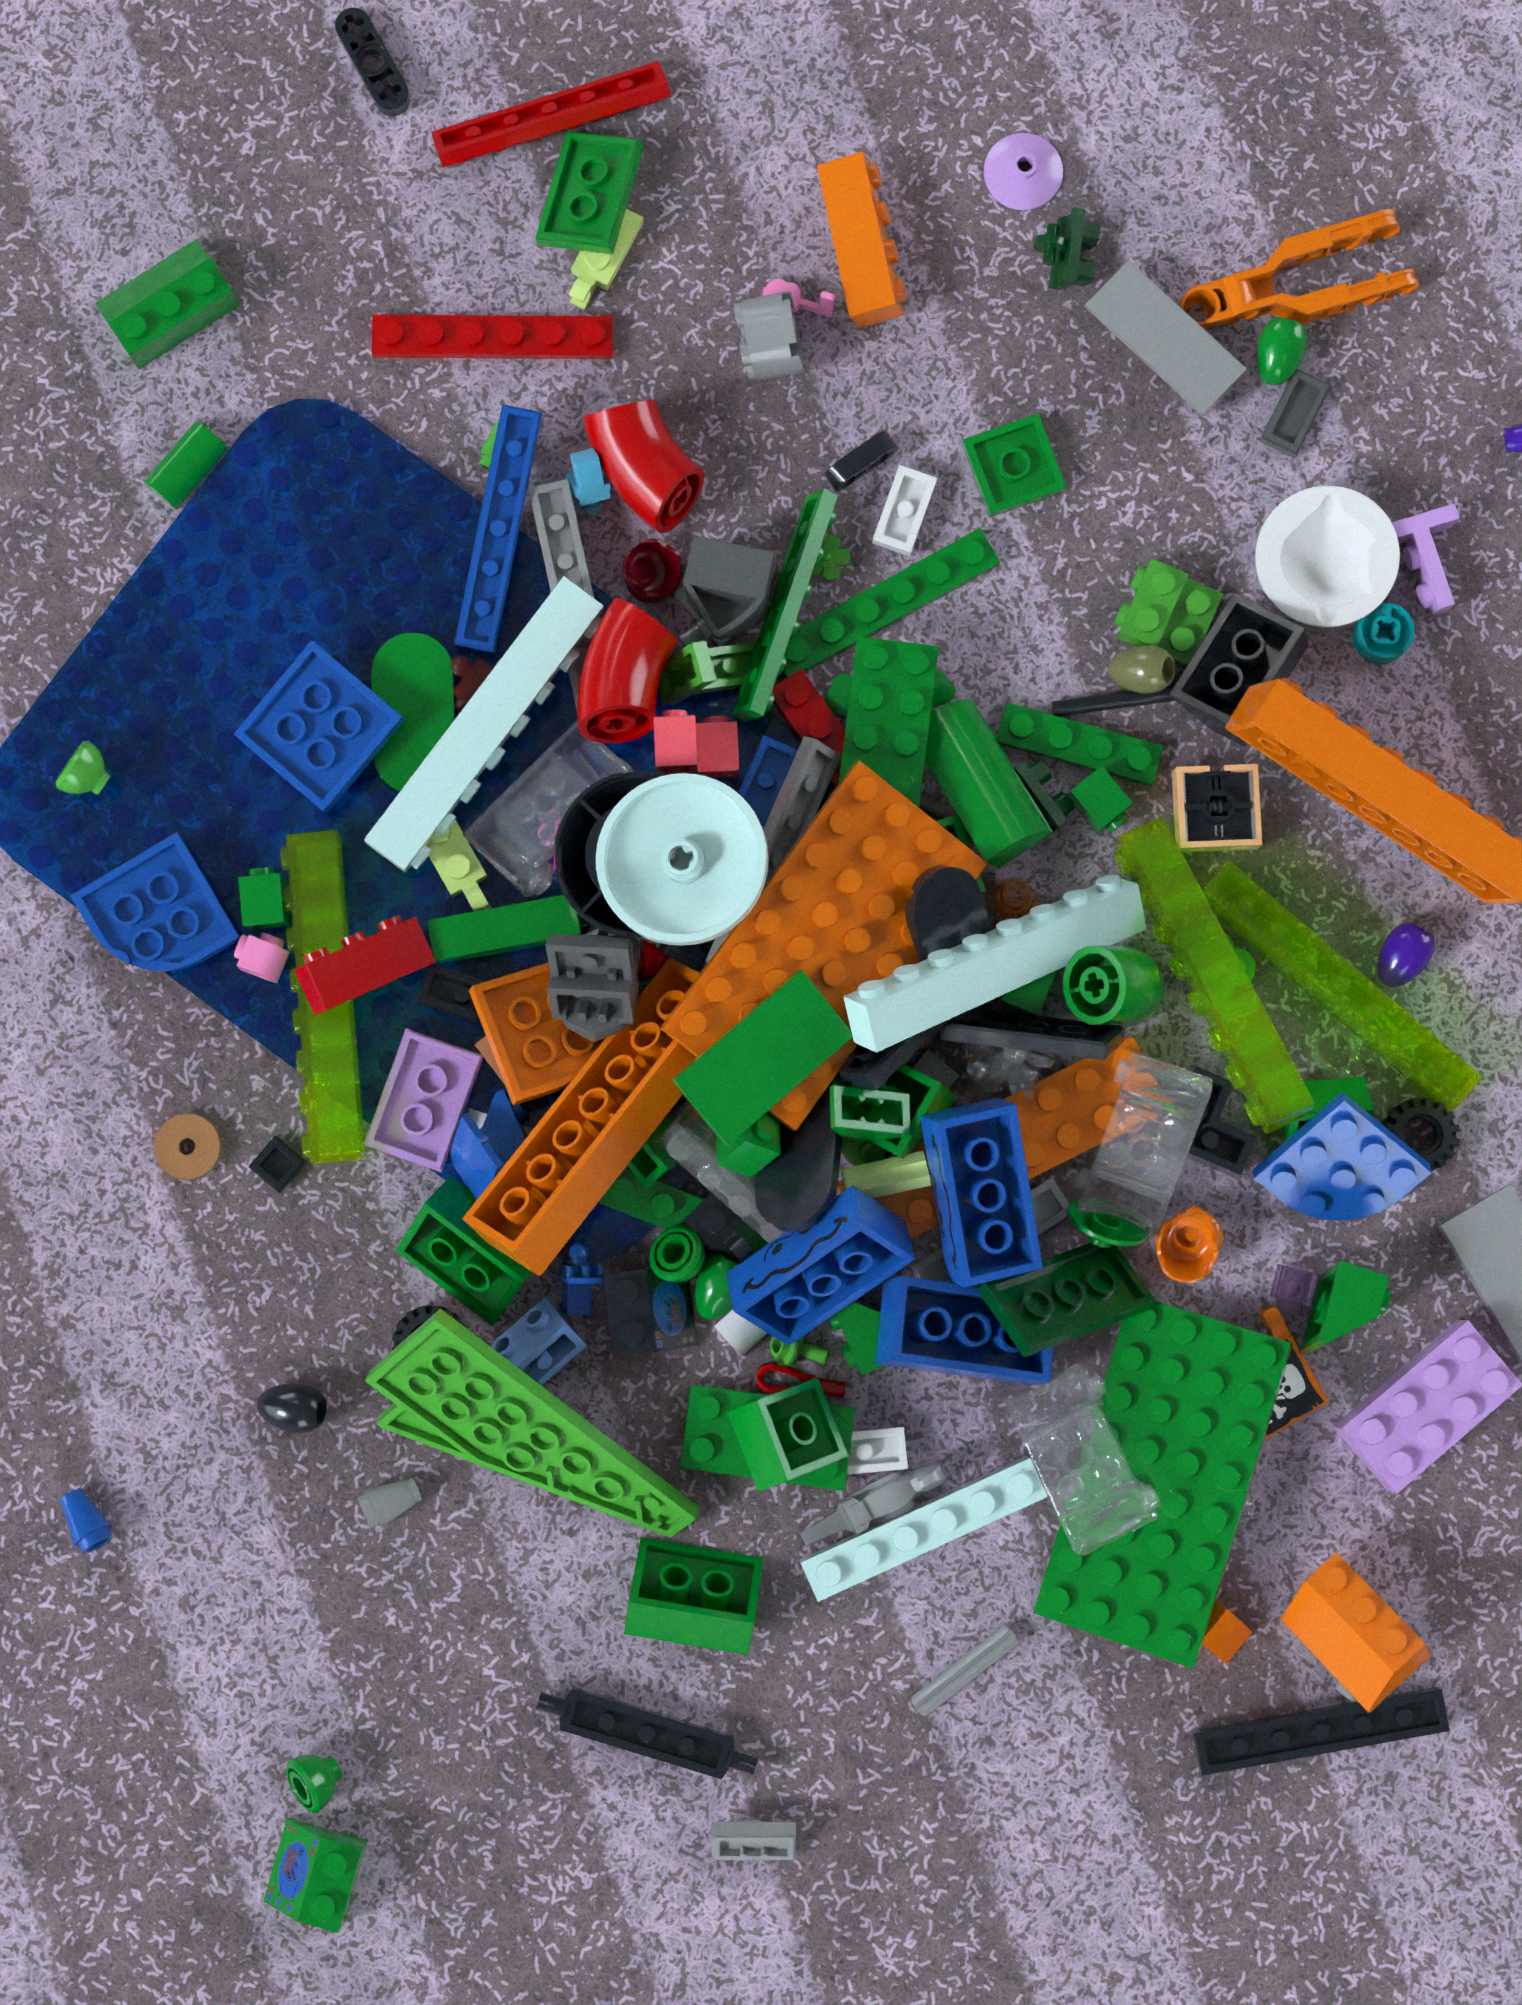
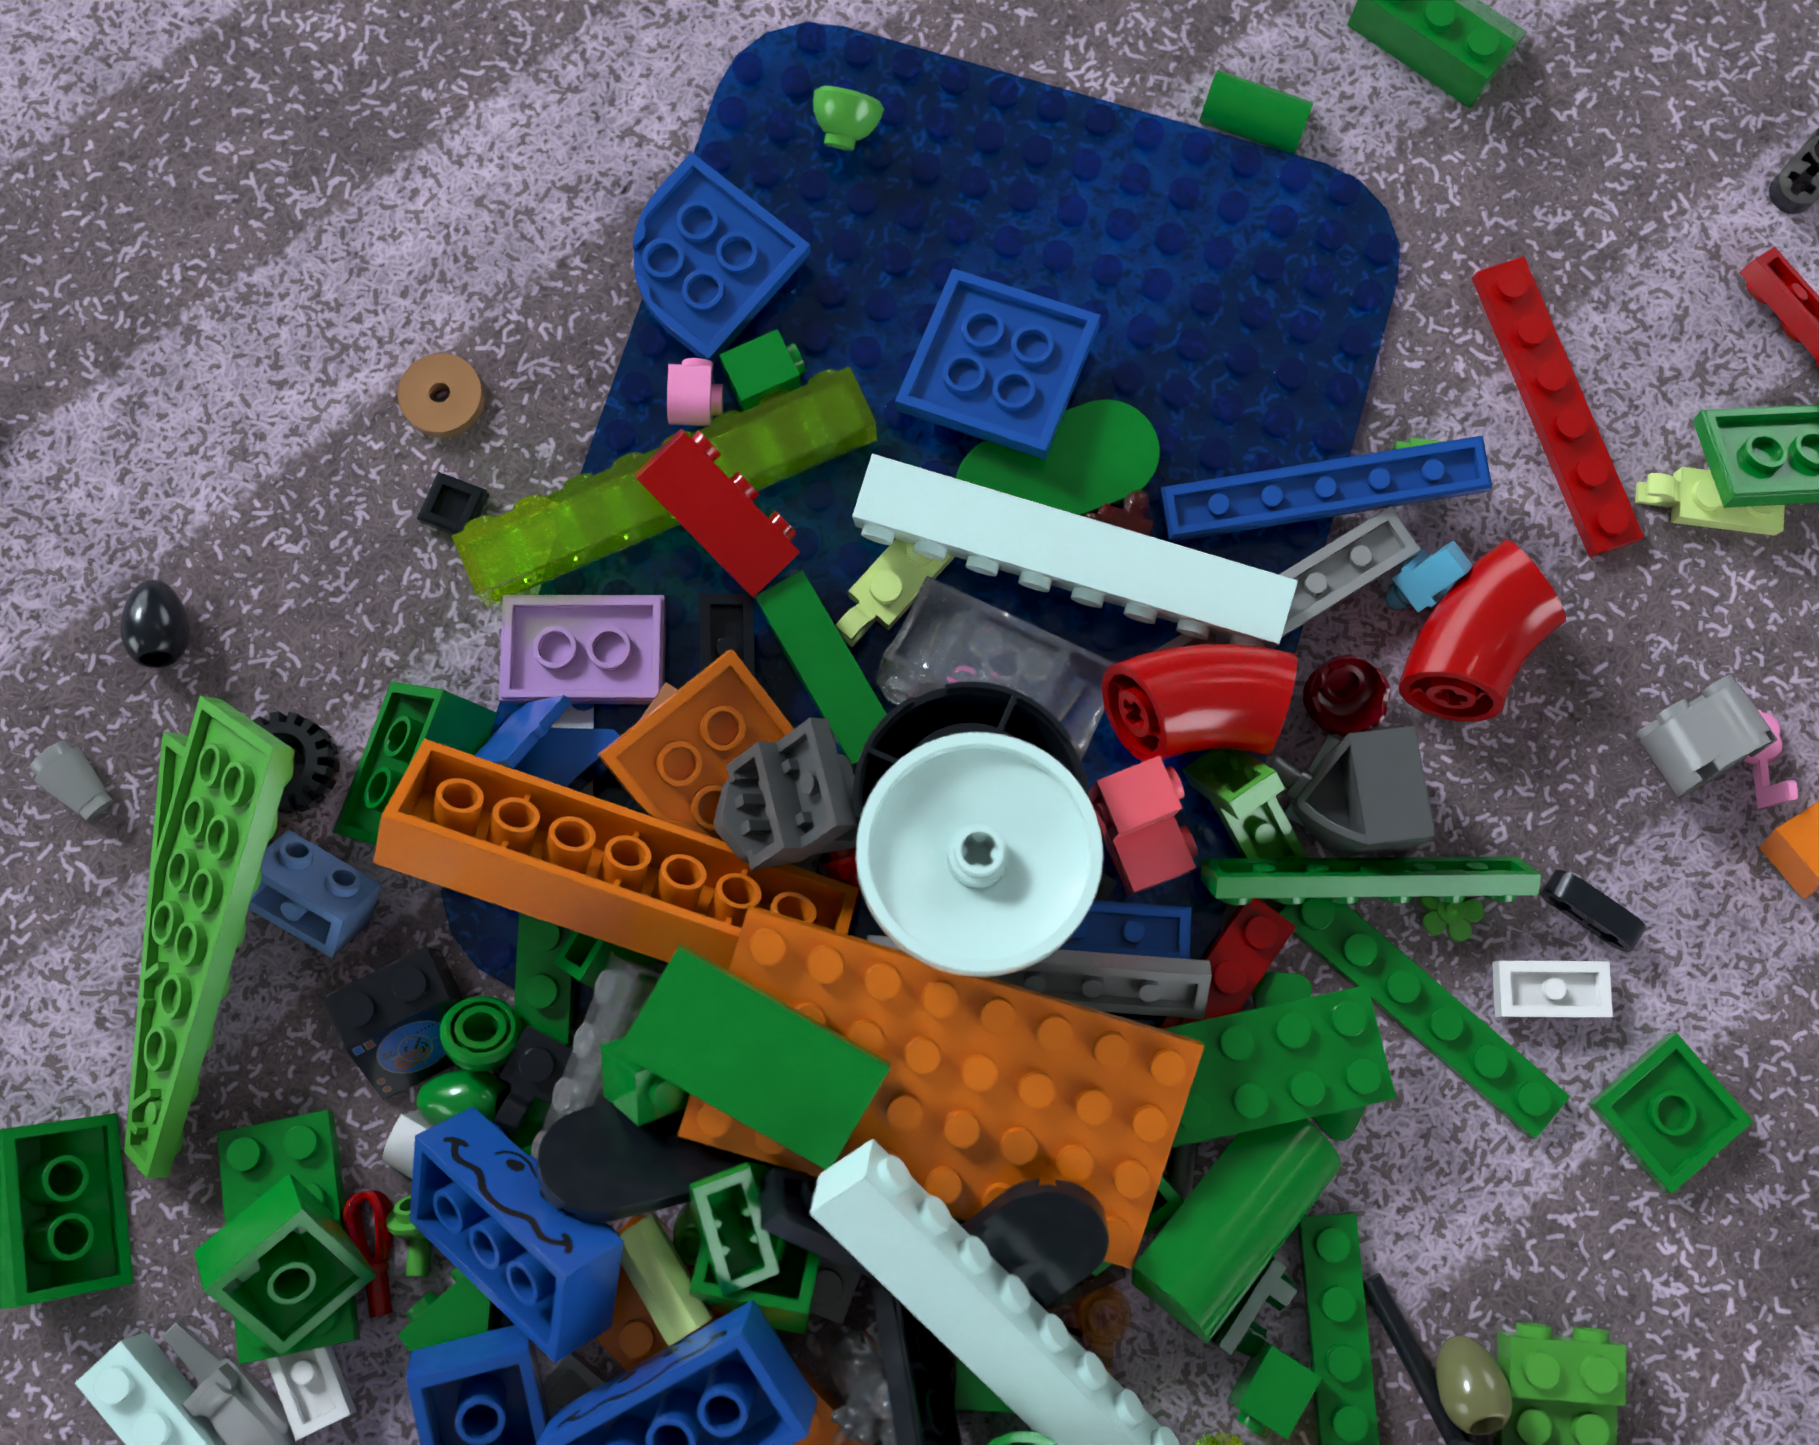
camera: 70 degrees right, 5 degrees down
(578, 1280) = (417, 918): blue piece -> none

